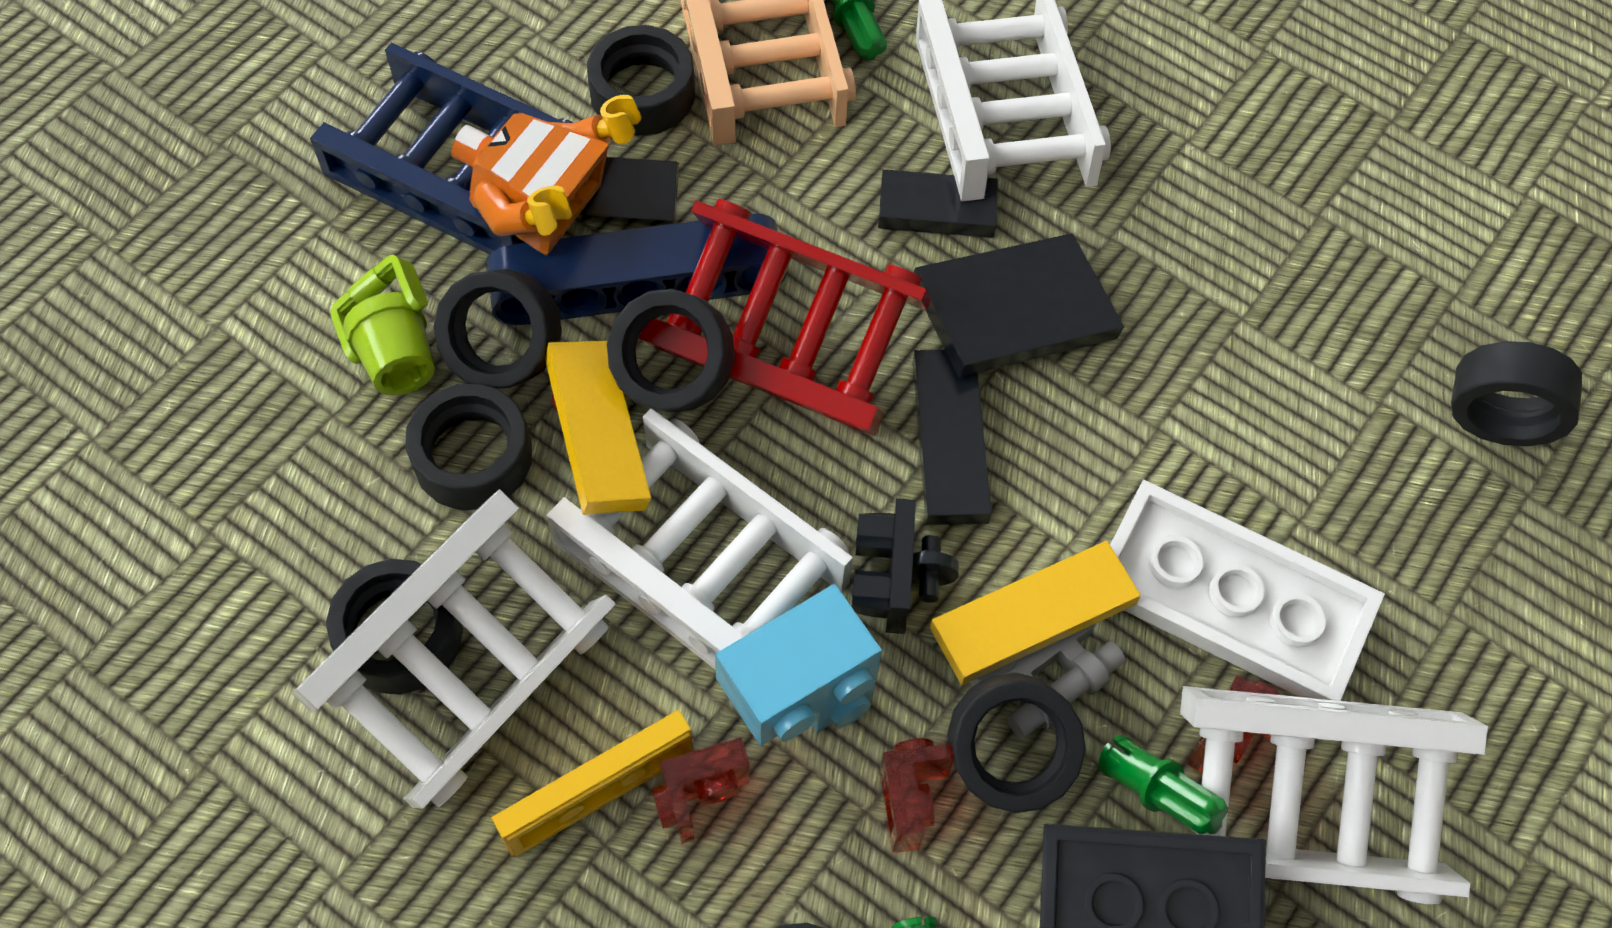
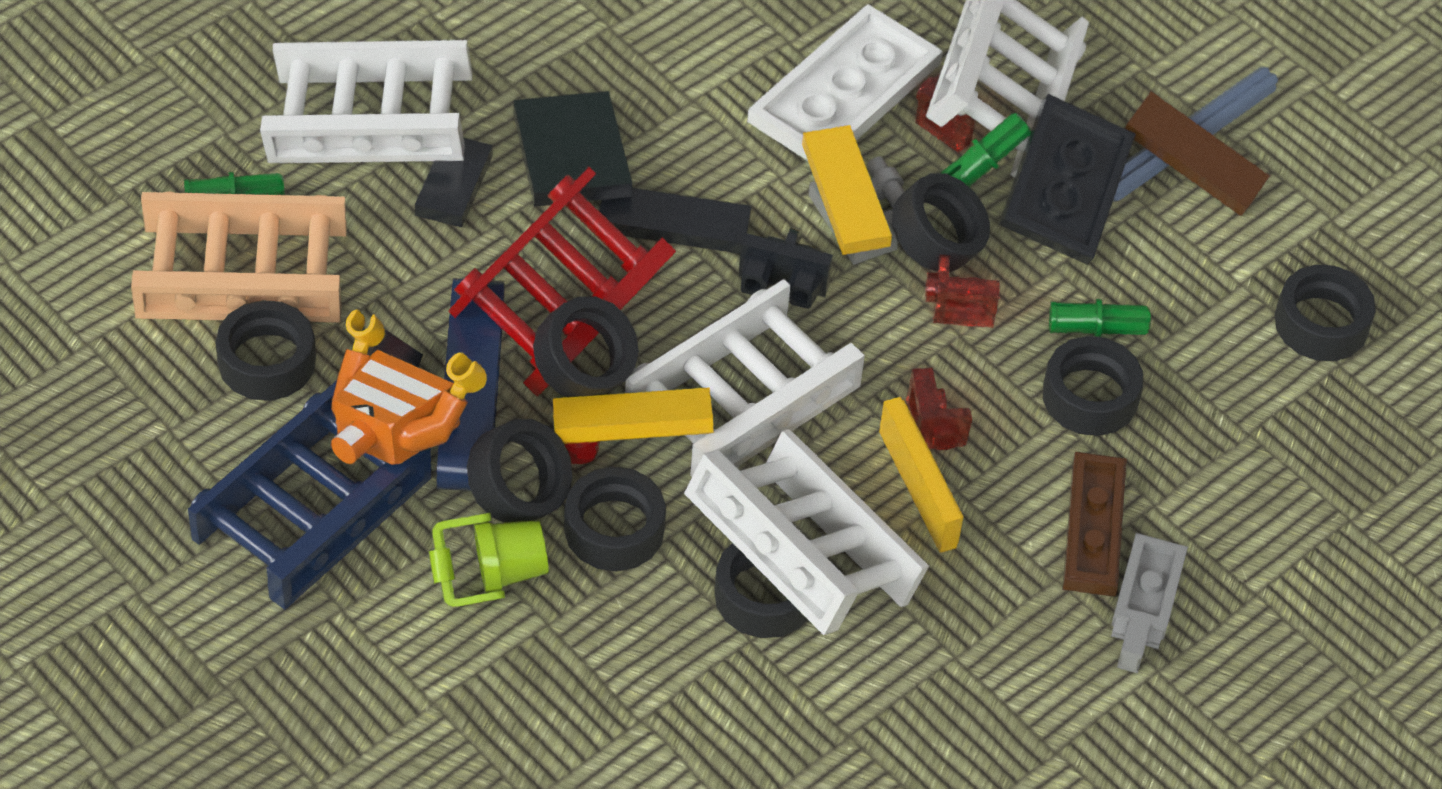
camera: 80 degrees left, 10 degrees down
(802, 669) = (872, 314): medium azure brick -> none

